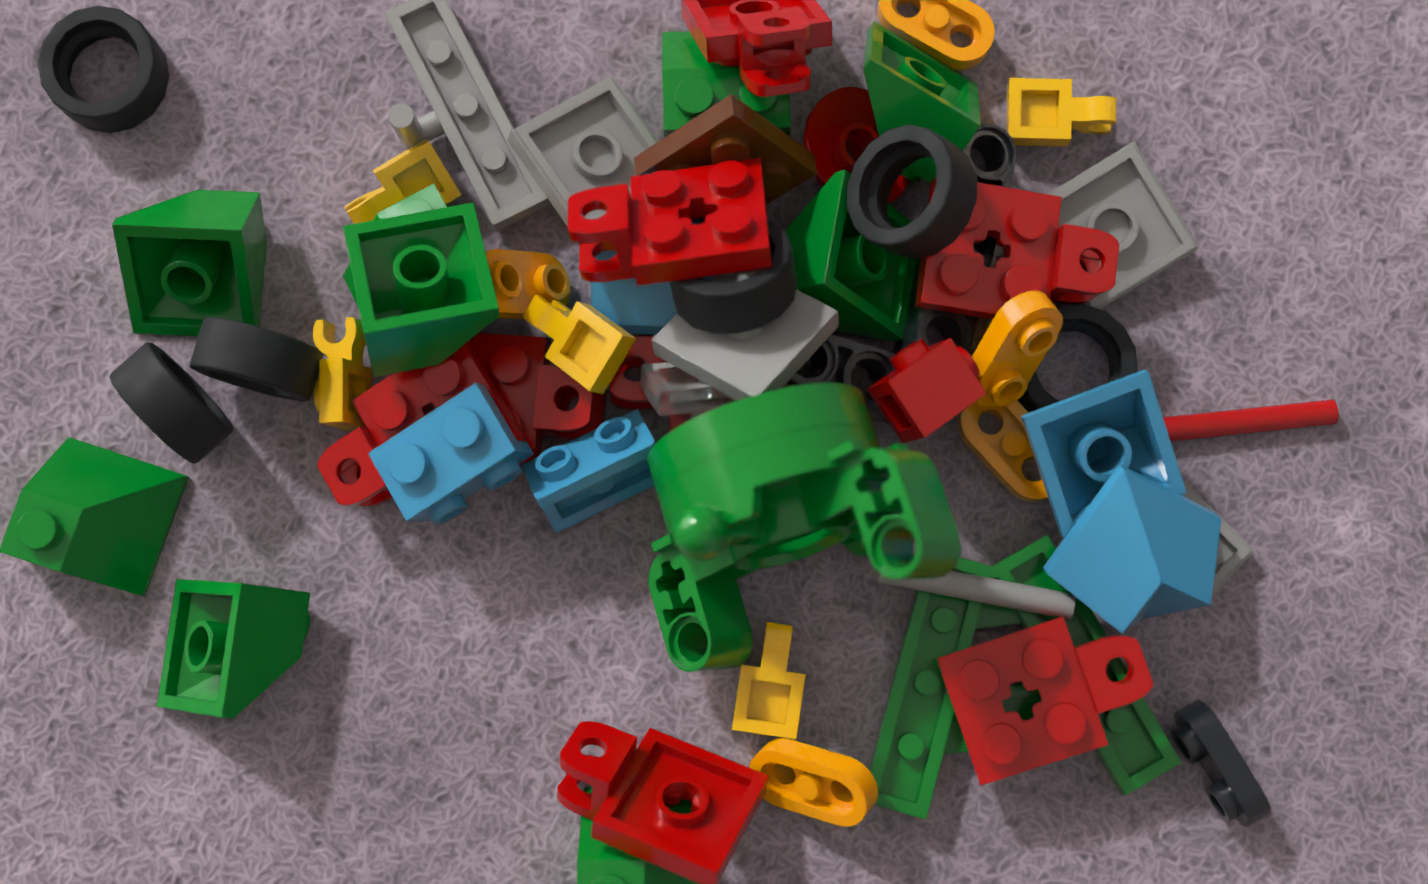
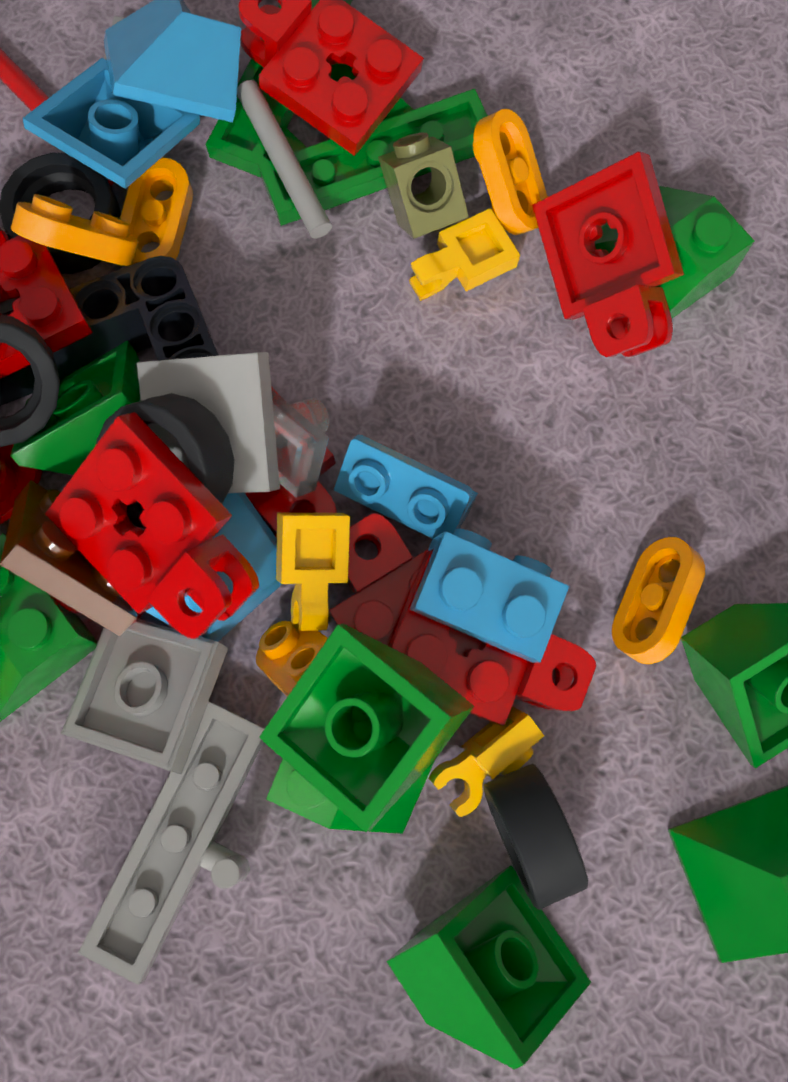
camera: 125 degrees left, 5 degrees down
(171, 403) = (629, 882): black tyre -> none
(355, 605) = (655, 606): none -> light orange plate
(401, 178) = (283, 837): yellow plate -> none
(774, 487) = (317, 302): green piece -> none
(856, 690) = (443, 199): none -> olive brick
(927, 388) = (154, 265): red brick -> none

